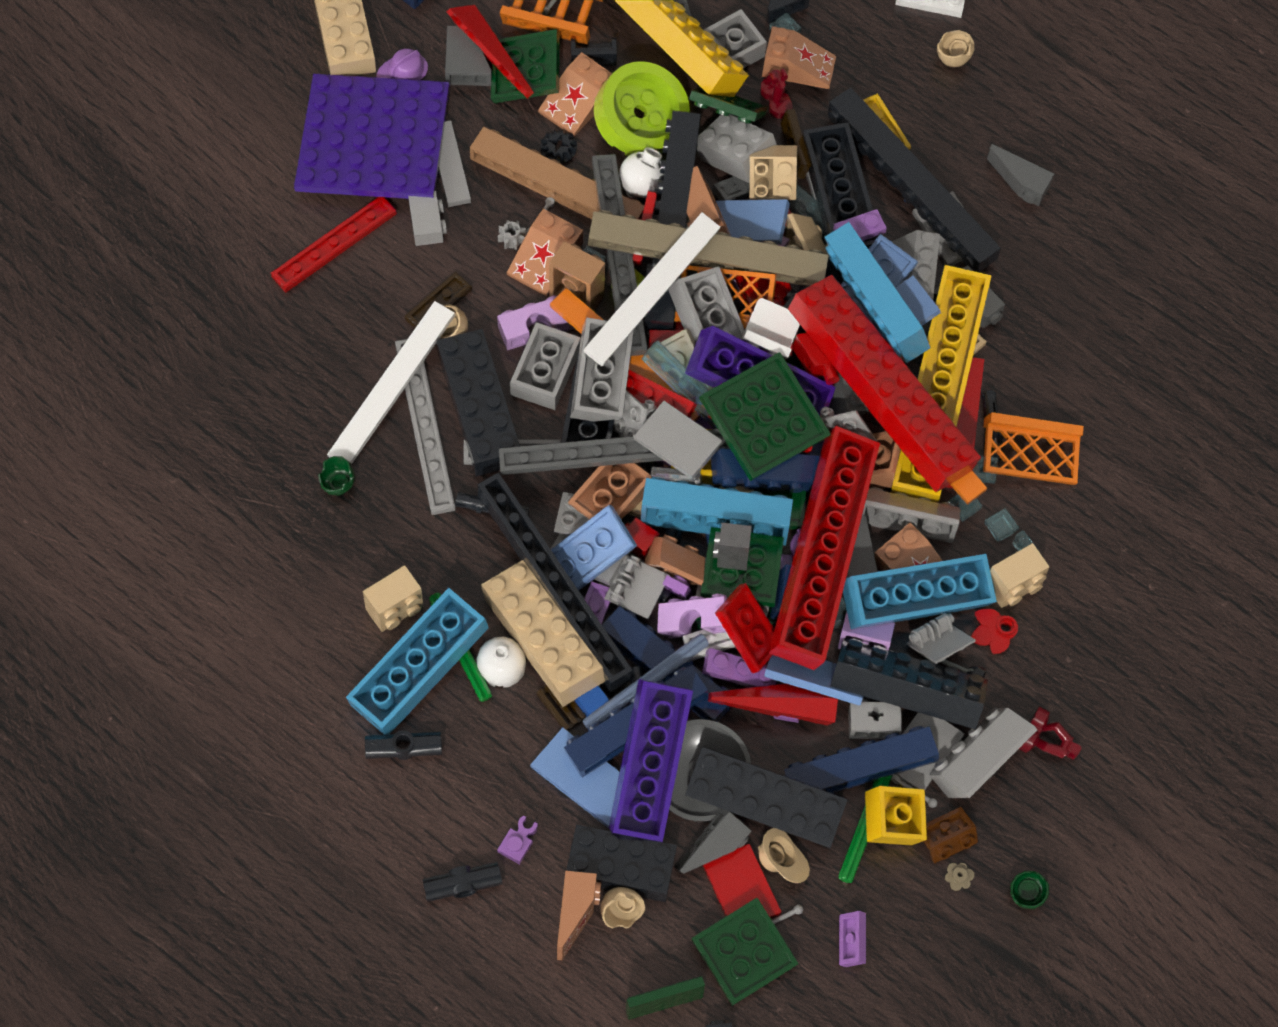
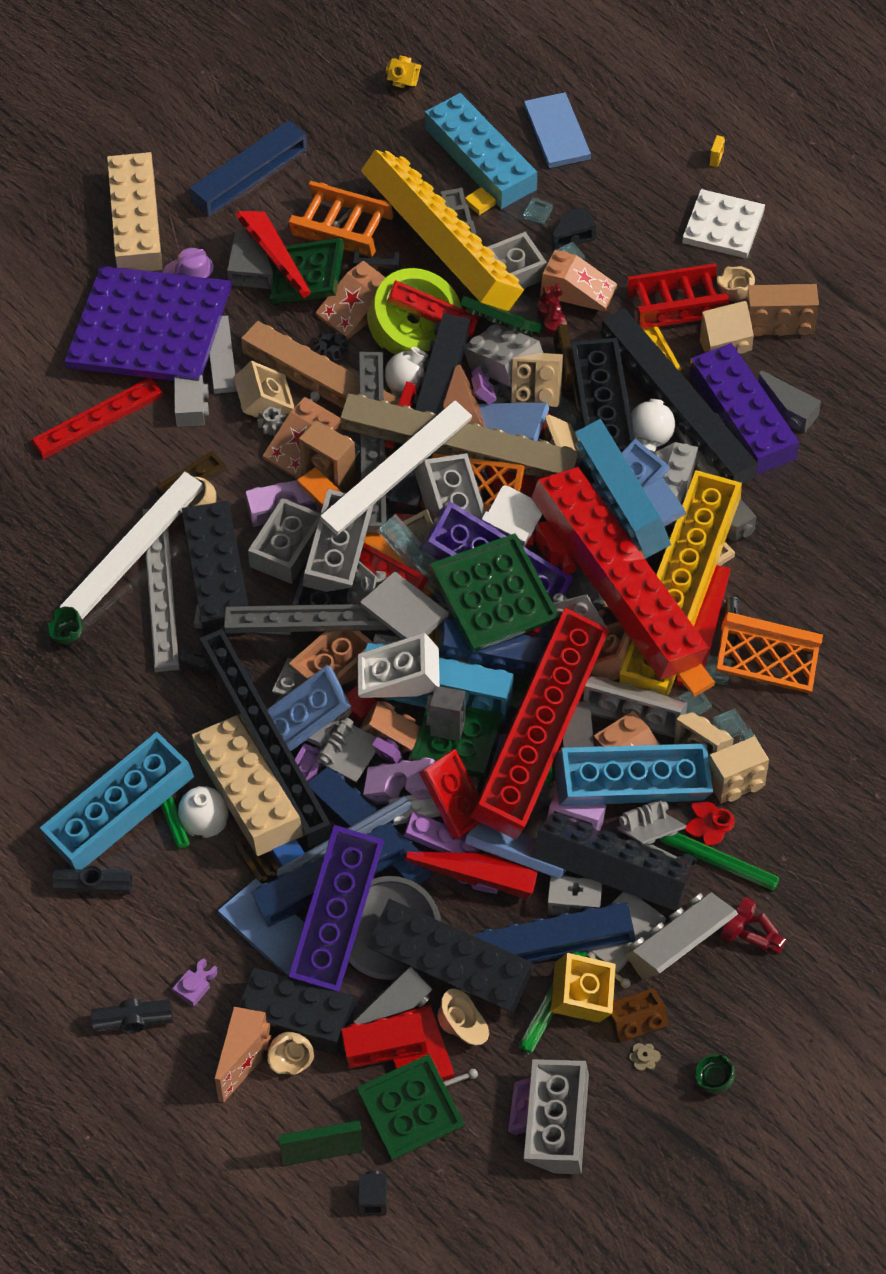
camera: 10 degrees right, 10 degrees down
(393, 599) = (102, 741): tan brick -> none
(498, 201) = (262, 388): none -> tan slope
(654, 101) = (426, 305): none -> red tile
(682, 506) = (399, 669): none -> white slope
(711, 885) = (384, 1040): none -> red brick
(719, 184) = (482, 387): none -> medium lavender plate
(866, 225) = (624, 430): medium lavender plate -> none
(885, 947) = (557, 1115): none -> light grey slope
(895, 210) = (652, 423): none -> white brick
(904, 84) = (678, 311): none -> red fence
(953, 104) = (727, 326): none -> tan slope
(973, 540) = (698, 730): none -> tan slope
(978, 183) = (744, 406): none -> dark purple brick
(1004, 76) = (783, 309): none -> medium nougat brick
(1013, 669) = (722, 860): none -> green axle

